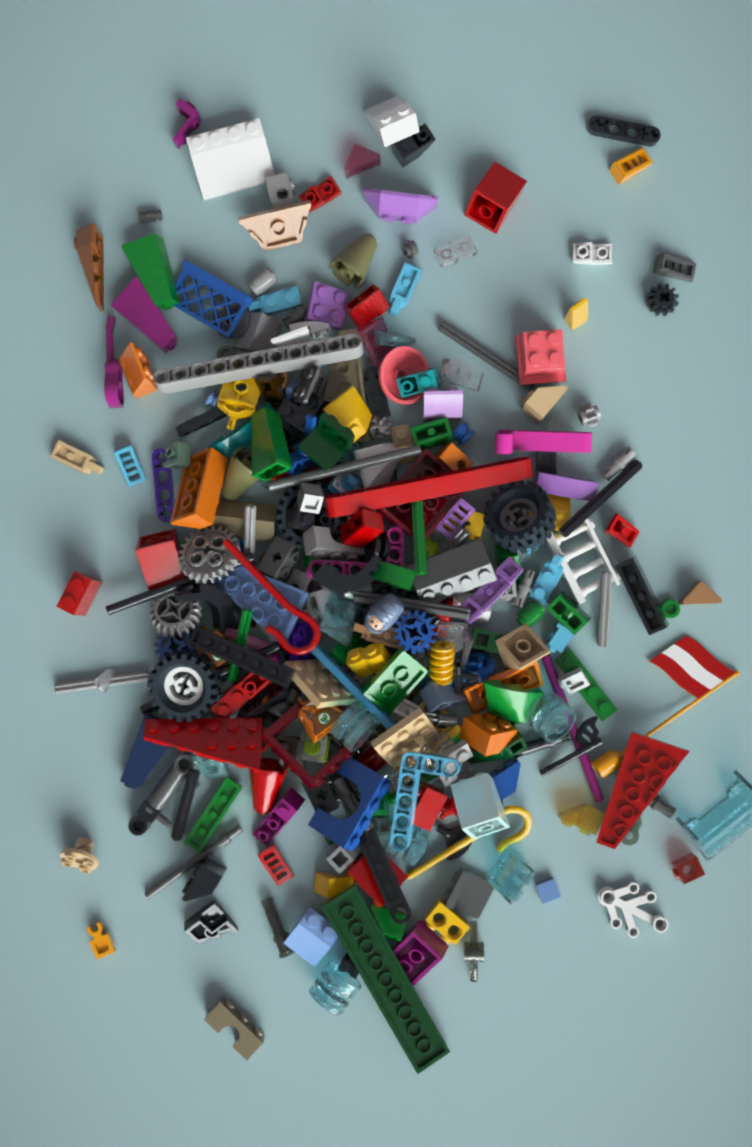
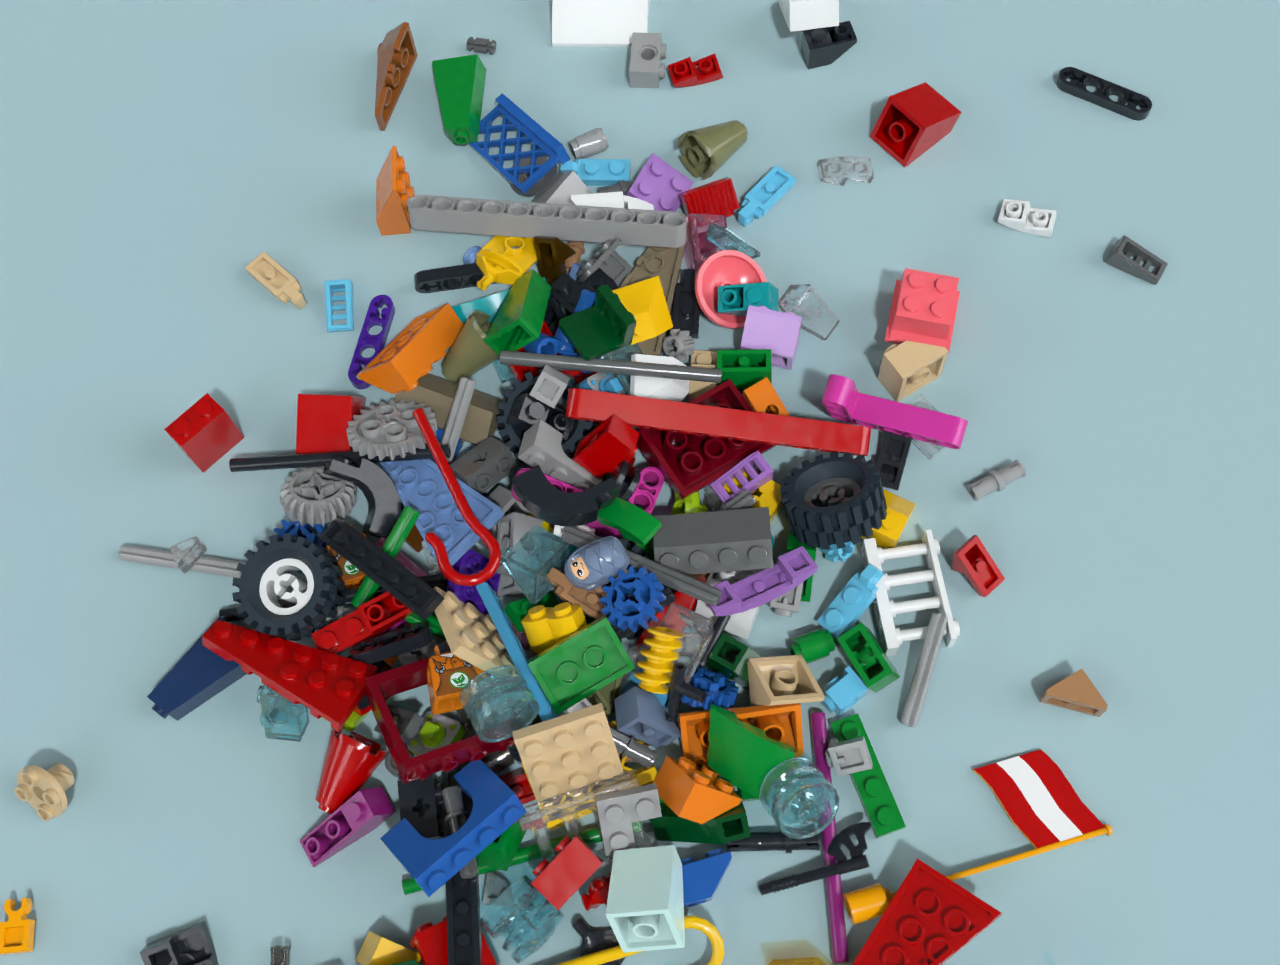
camera: 25 degrees right, 20 degrees down
(113, 371) = (361, 197): magenta piece -> none
(141, 312) = (428, 142): magenta slope -> none
(161, 795) = (175, 753): dark grey piece -> none
(177, 455) = (402, 307): sand green brick -> none
(185, 804) = (222, 762): black axle -> none
(206, 878) = (201, 879): black slope -> none
(213, 814) = (255, 792): green plate -> none
(224, 839) = (255, 835): dark grey bar -> none
(262, 856) = (304, 900): red slope -> none
(277, 226) = (629, 86): wing -> none
(341, 857) = (418, 910): light grey slope -> none
(360, 161) = (757, 46): clear pink slope -> none
(398, 205) = (791, 100): medium lavender wedge -> none
(409, 249) = (787, 153): dark grey plate -> none
(412, 791) = (551, 830): medium azure beam -> none
(419, 538) = (681, 482): green axle -> none
(463, 433) = (788, 383): blue wheel -> none
(481, 352) = (843, 293): dark grey axle -> none
(523, 588) = (812, 608): light grey pin -> none
(567, 486) = (916, 486): medium lavender slope -> none
(577, 314) = (987, 276): yellow slope -> none
(589, 415) = (970, 405): light grey gear -> none
(600, 498) = (957, 513): black axle -> none
(620, 171) = (1089, 139): light orange slope -> none
(642, 595) = (986, 665): black brick -> none
(664, 306) = (1109, 292): black gear -> none
(670, 608) = (1024, 701): green tile -> none

